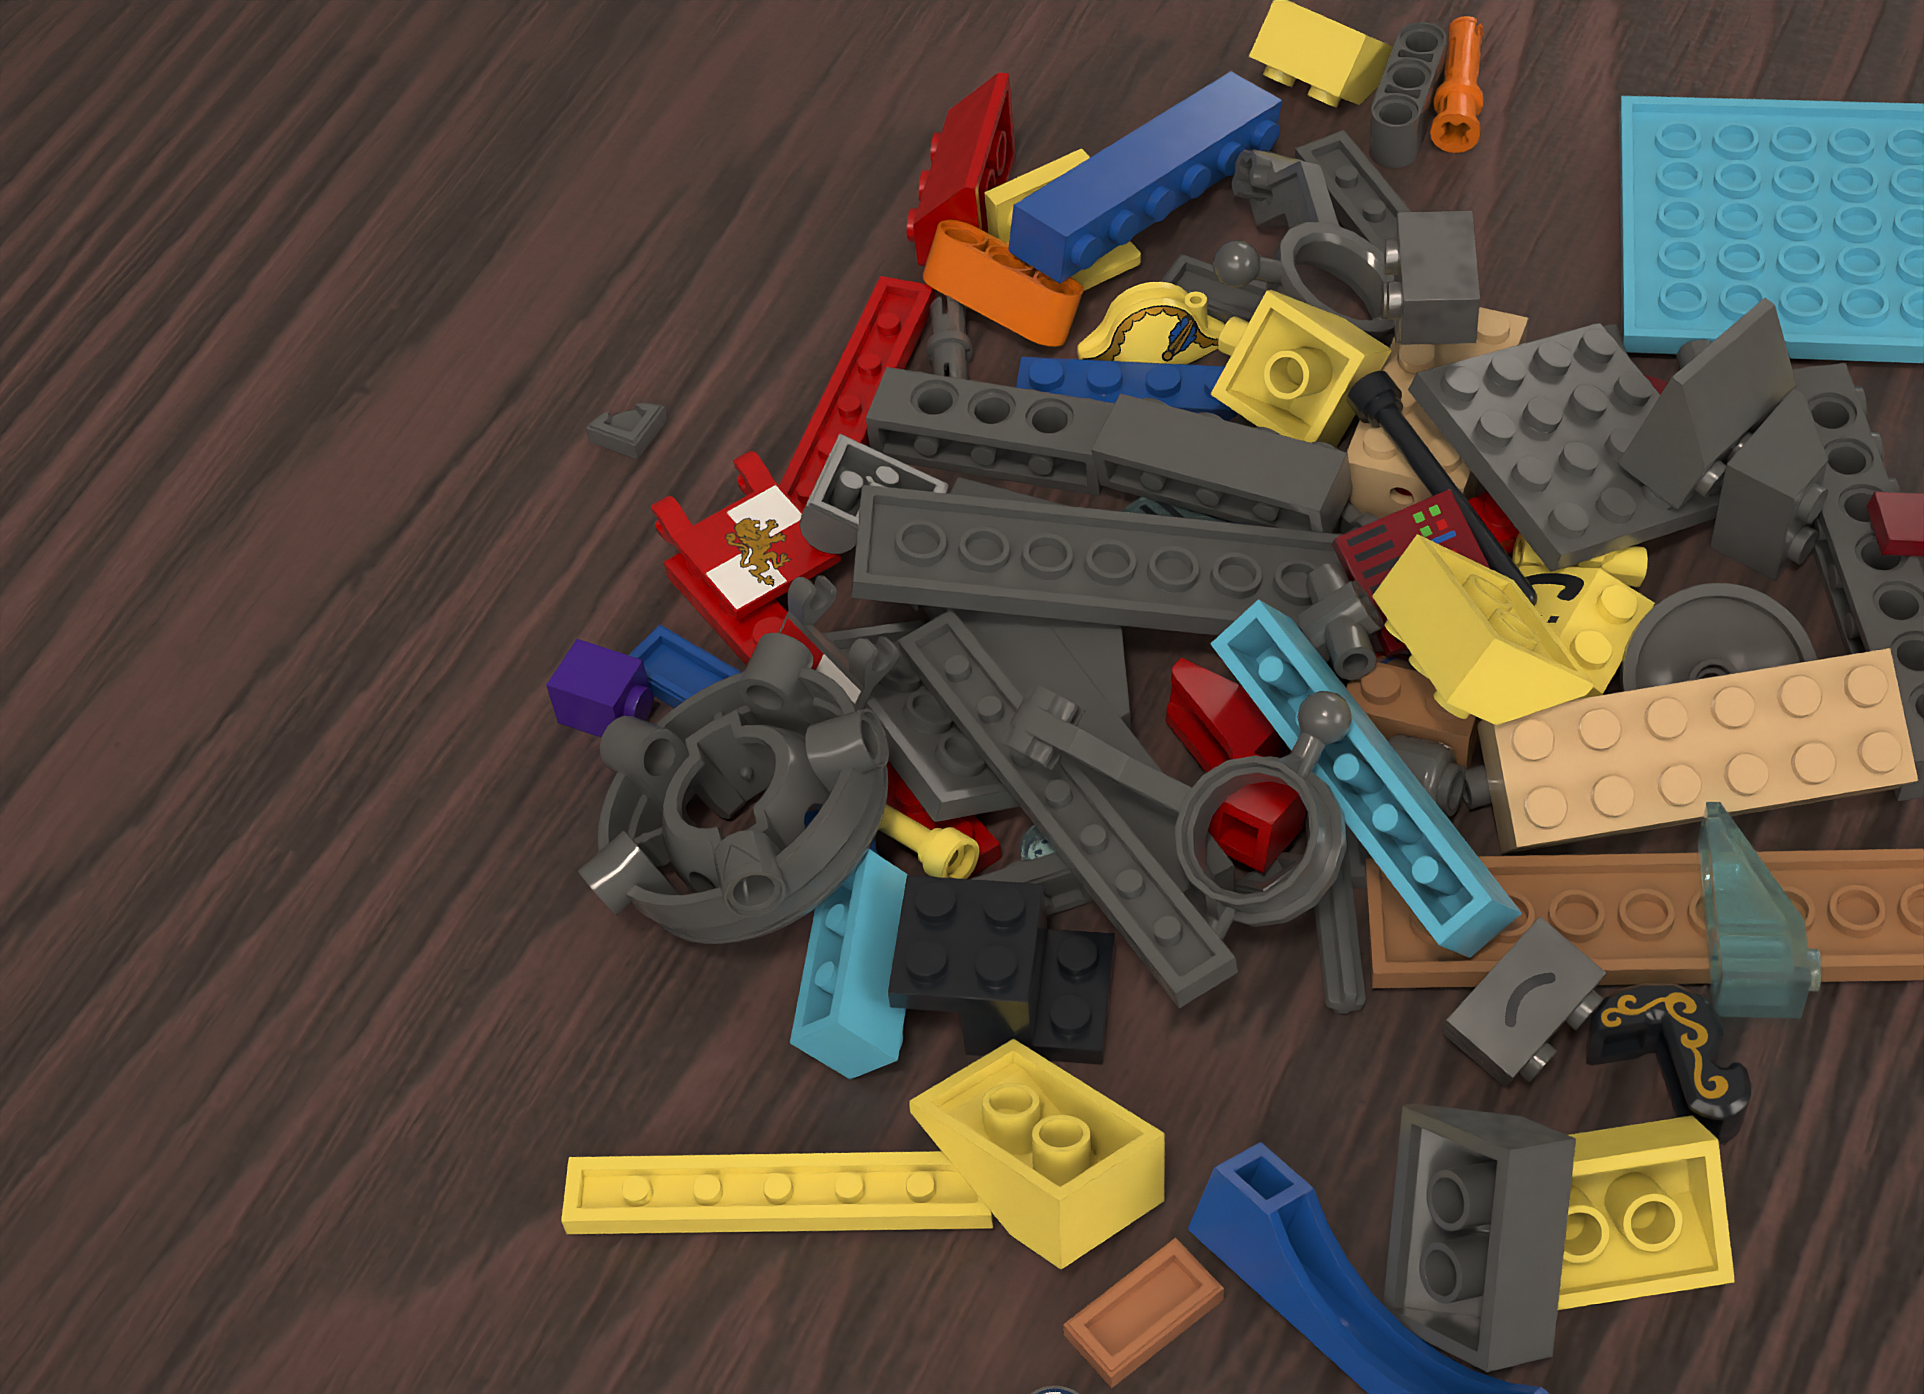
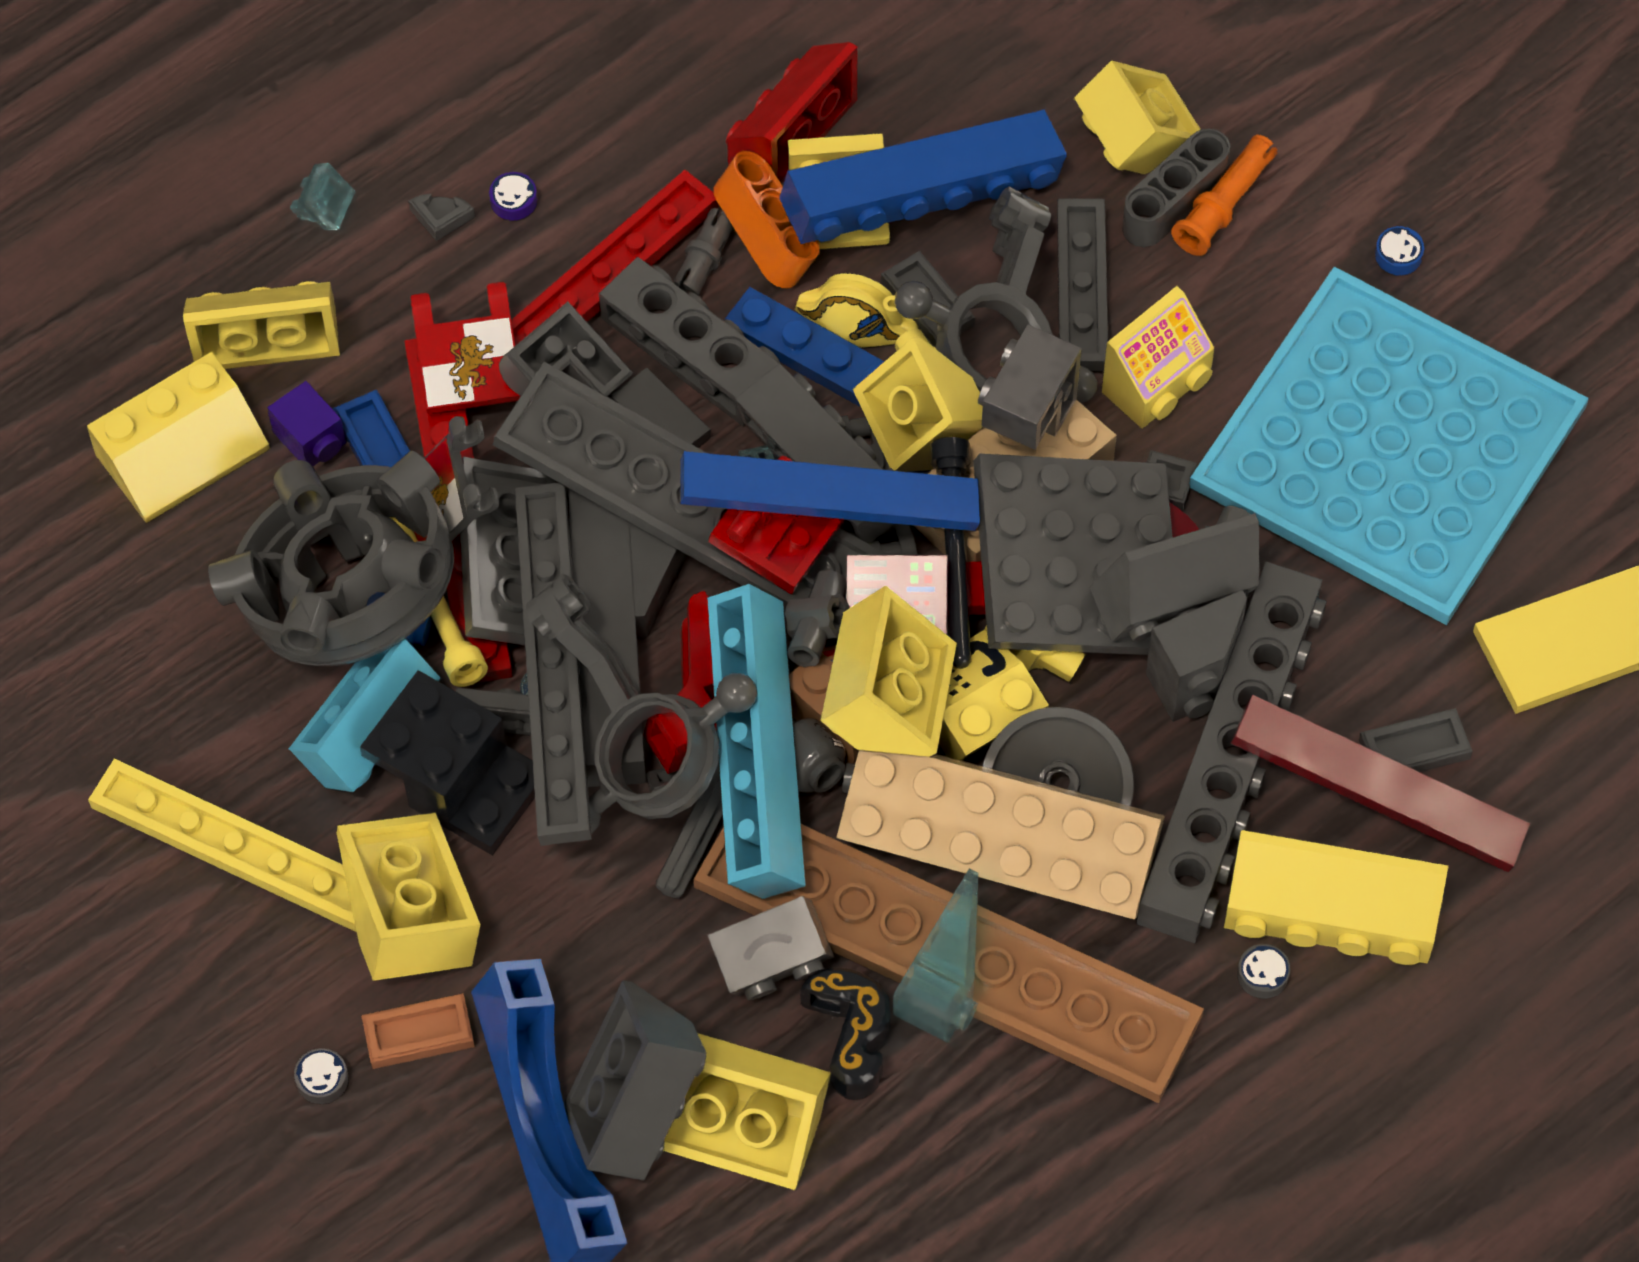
camera: 20 degrees right, 10 degrees up
(448, 768) = (177, 437): none -> light yellow slope
(486, 460) = (323, 197): none -> clear light blue tile
(491, 612) = (263, 325): none -> light yellow slope
(701, 380) = (513, 196): none -> tile
(1231, 544) = (774, 543): none -> red plate
(1279, 471) = (829, 491): none -> blue tile
(1517, 237) = (1157, 360): none -> light yellow slope
(1667, 65) = (1399, 250): none -> tile

